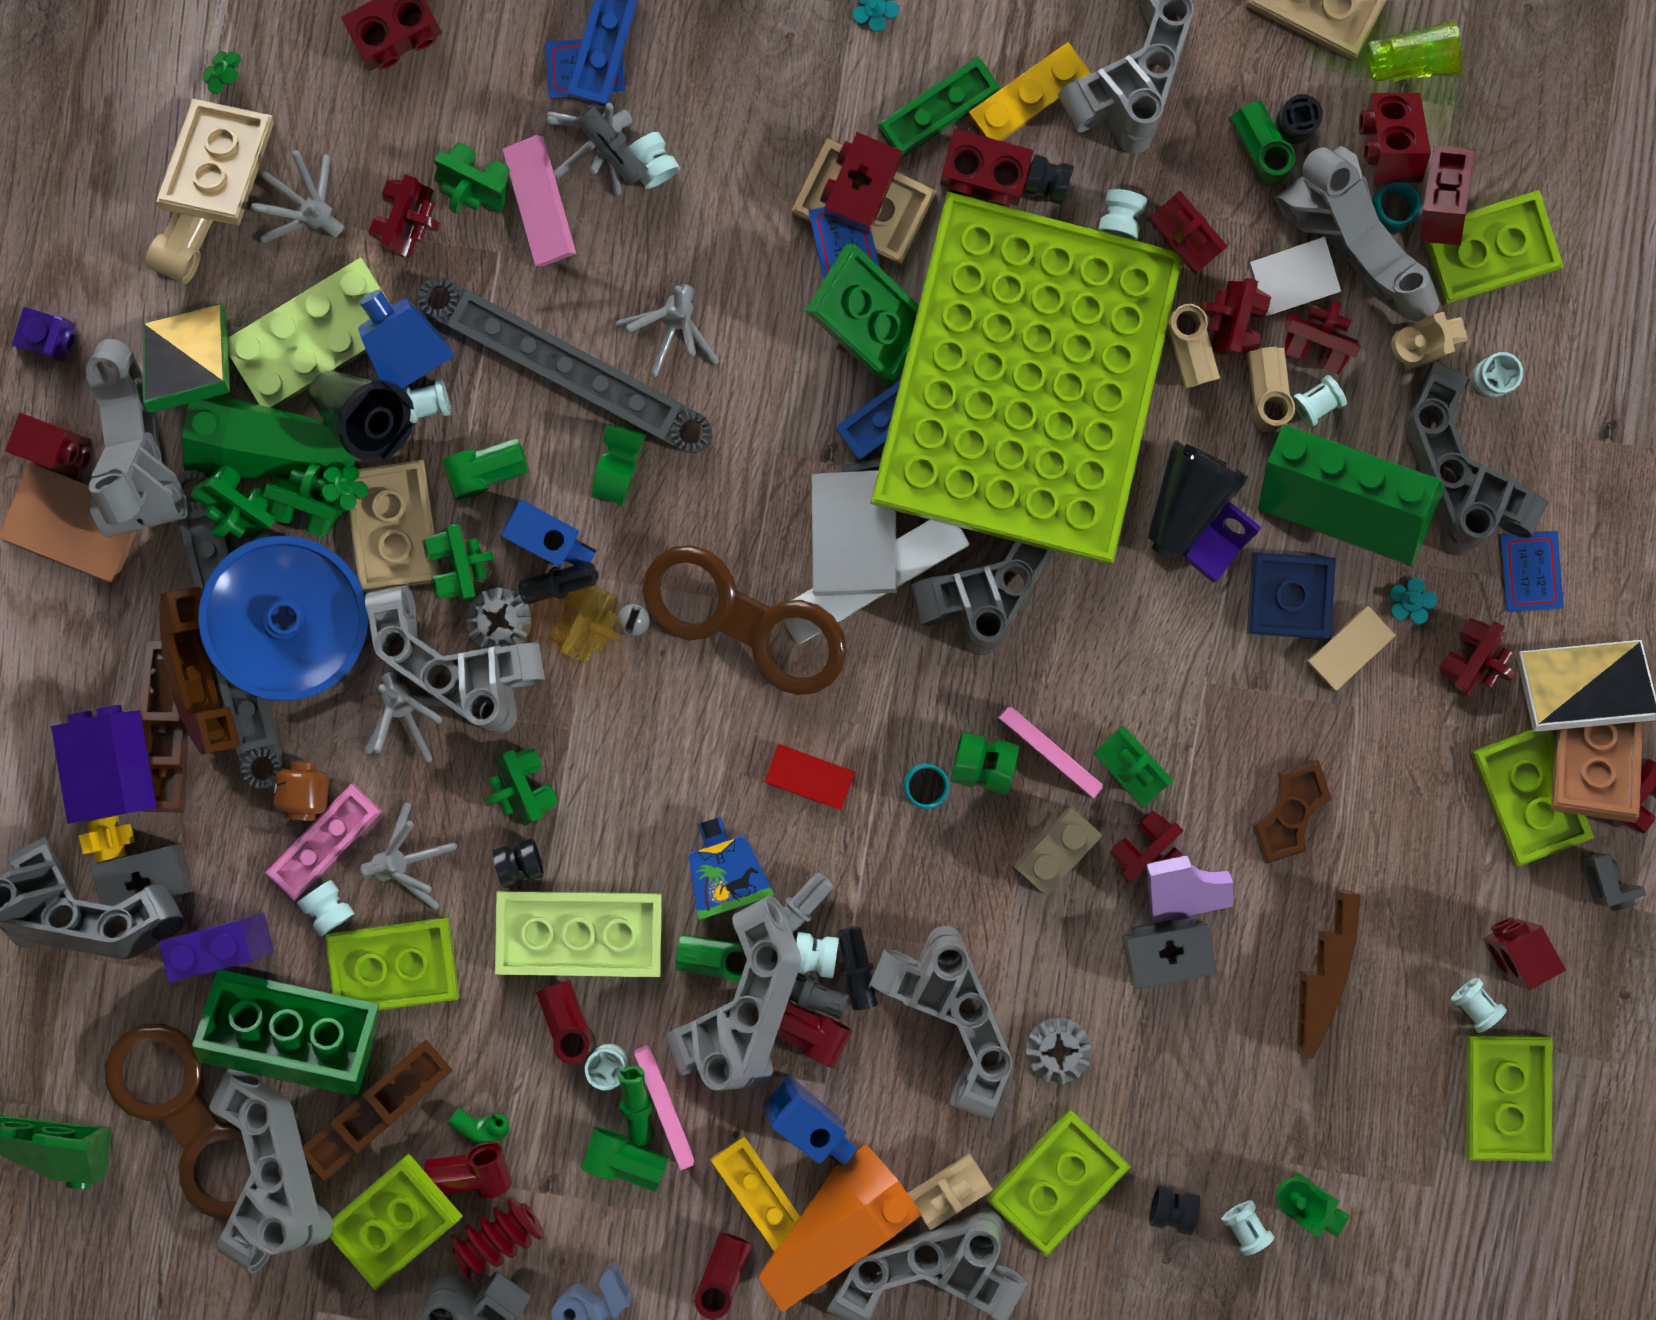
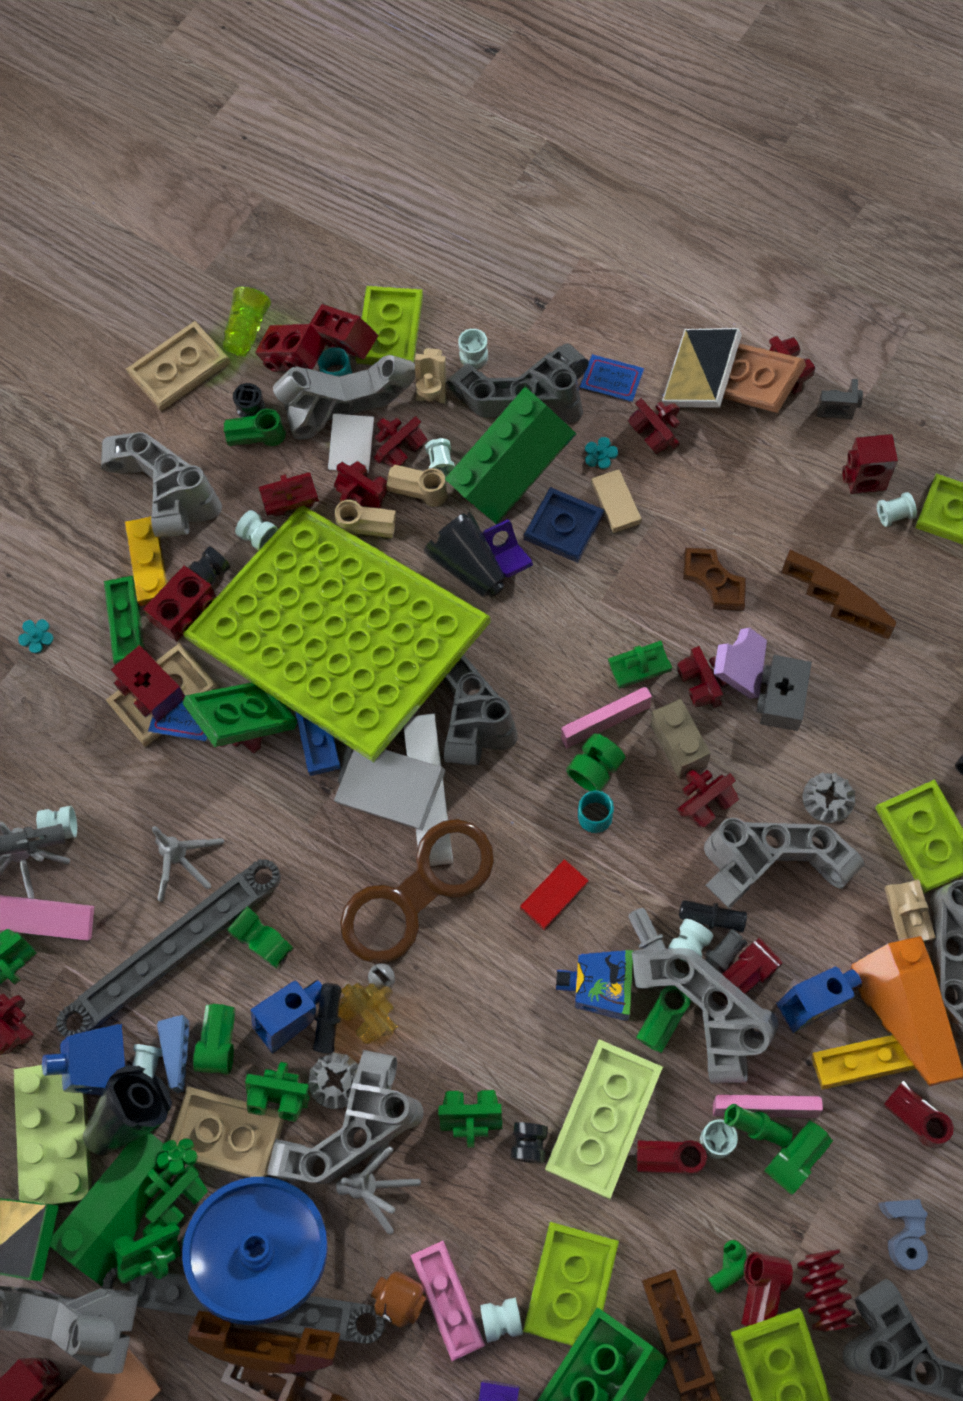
camera: 60 degrees left, 20 degrees down
(392, 863) = (489, 1246): light grey plant -> none
(460, 423) = (174, 1045): none -> medium blue slope
(1002, 904) = (718, 789): none -> dark red hips
(1519, 789) = (762, 433): lime tile -> none

